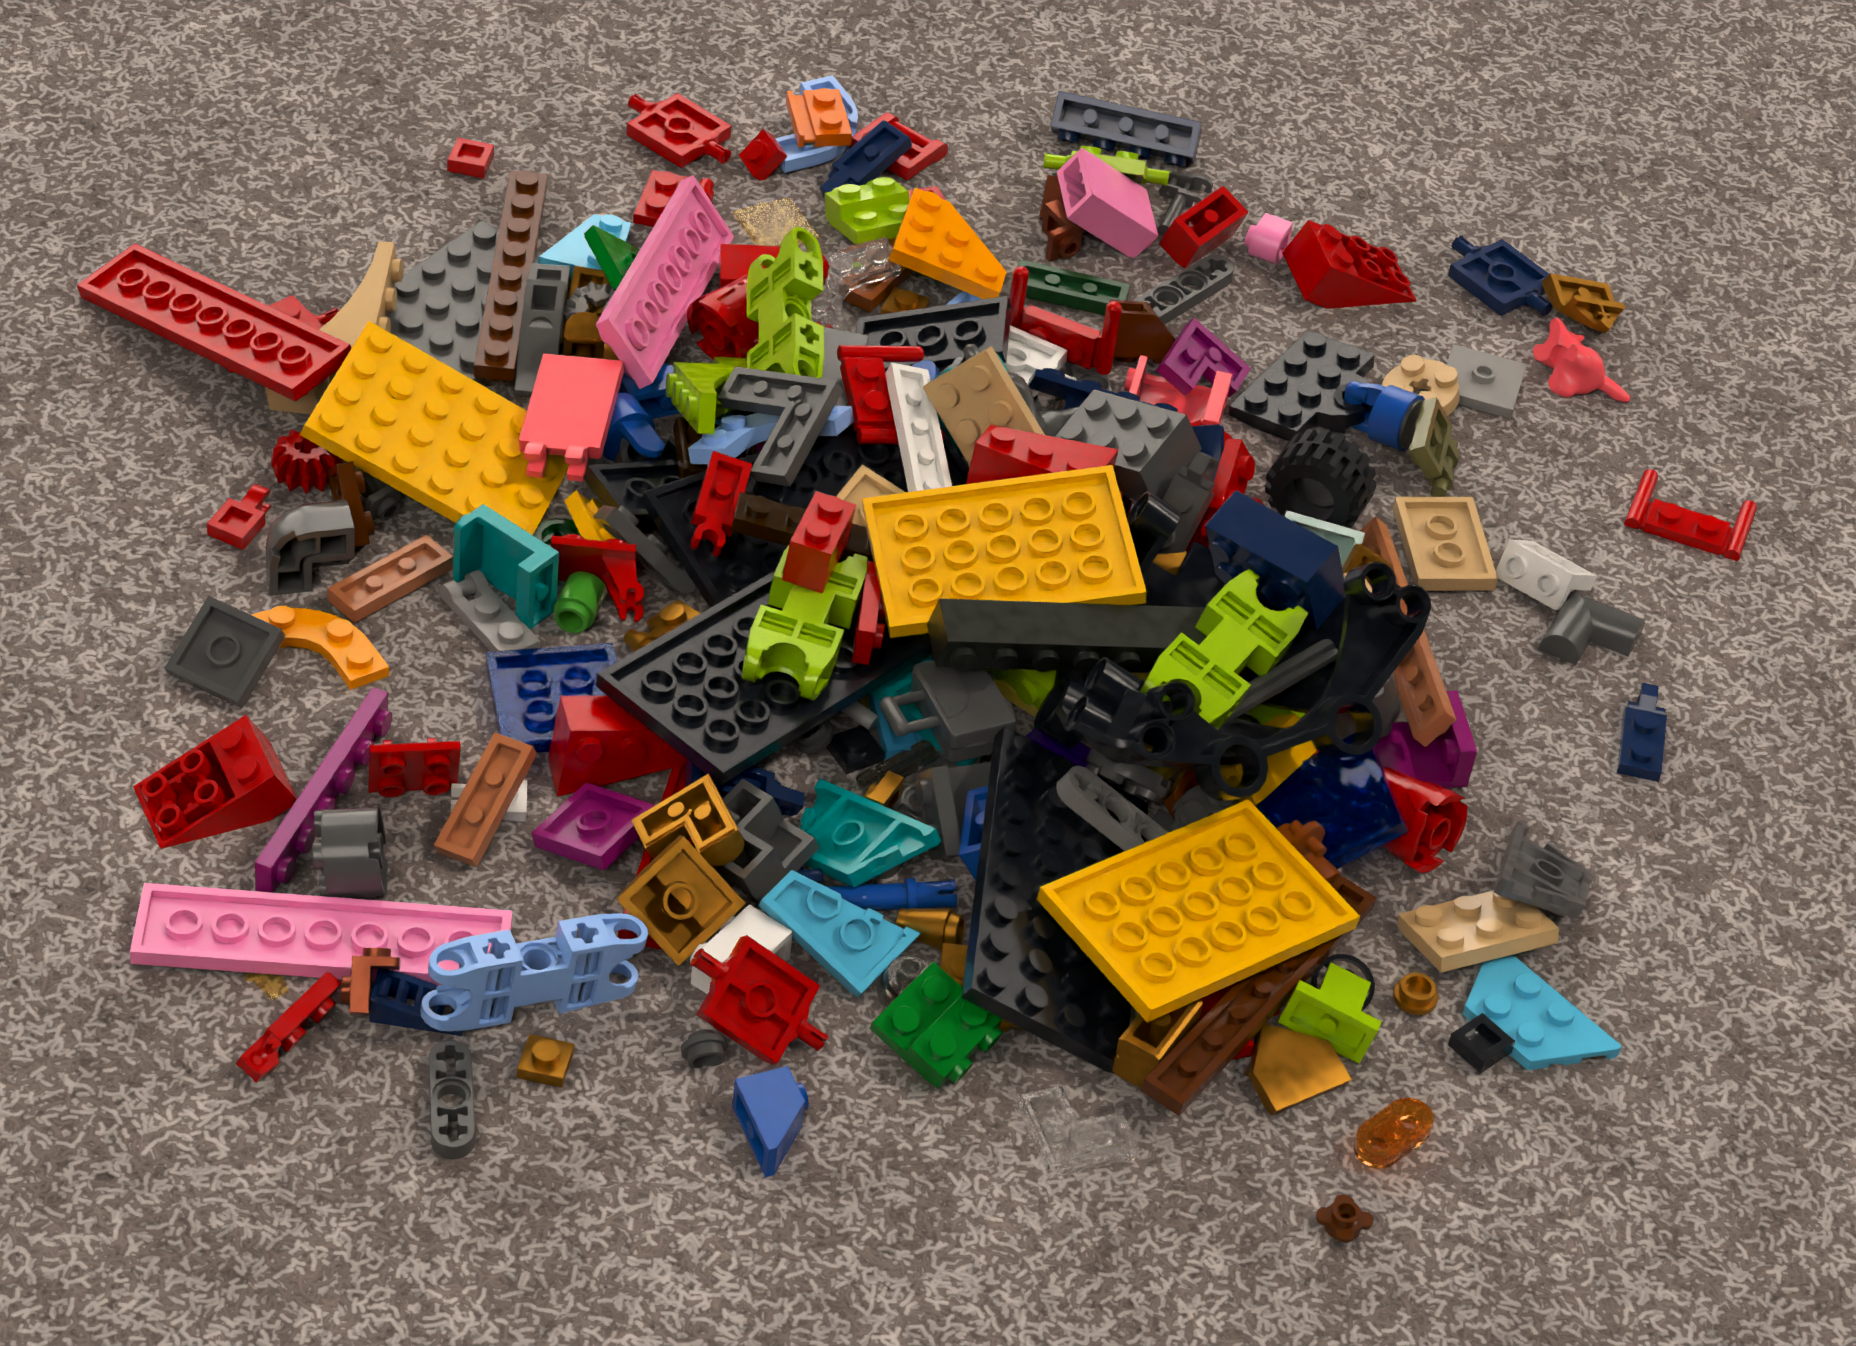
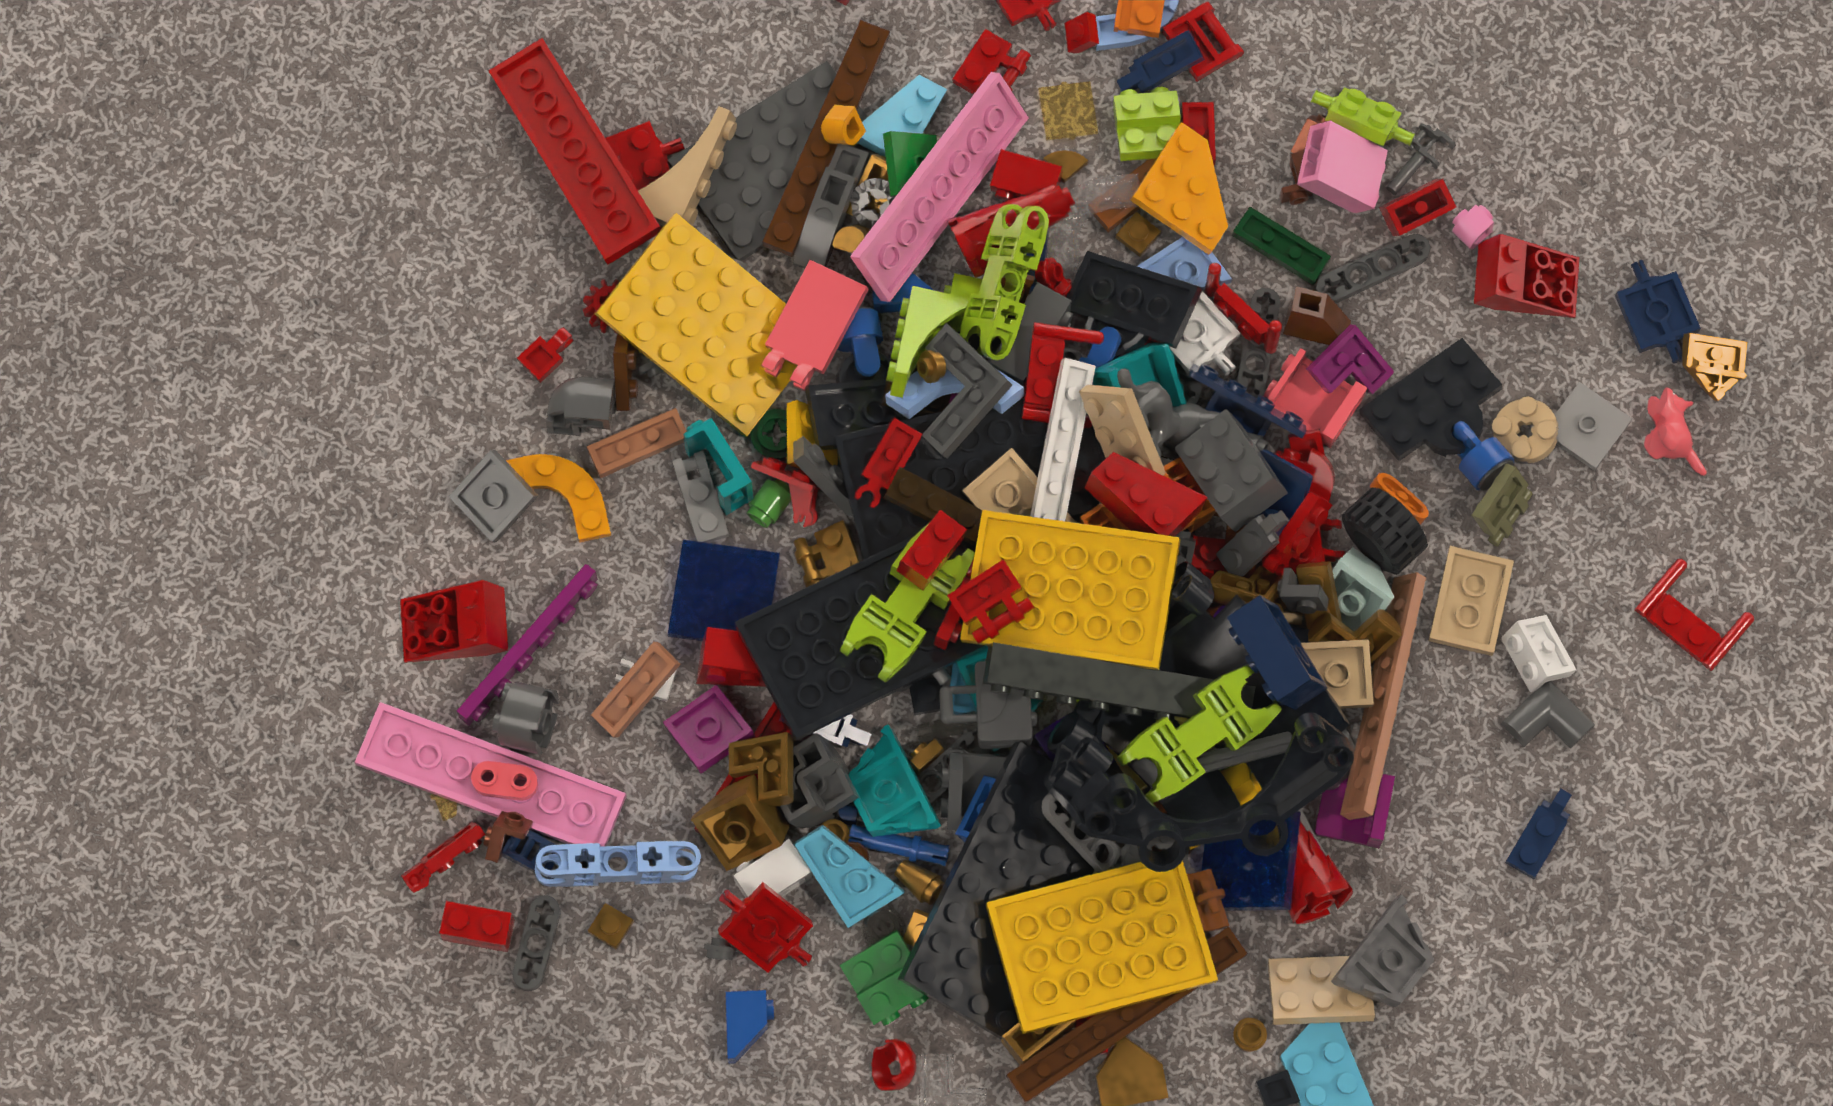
camera: 25 degrees right, 30 degrees up
(345, 925) = (504, 780): none -> coral plate
(364, 1090) = (477, 926): none -> red brick
(413, 767) = (579, 649): red plate -> none
(531, 240) = (842, 125): none -> light orange plate
(735, 403) = (931, 366): none -> pearl gold plate
(906, 563) = (985, 593): none -> red plate
(993, 1105) = (884, 1055): none -> red hair
(1126, 127) = (1401, 69): brick -> none
(1335, 1008) = (1183, 1034): lime piece -> none

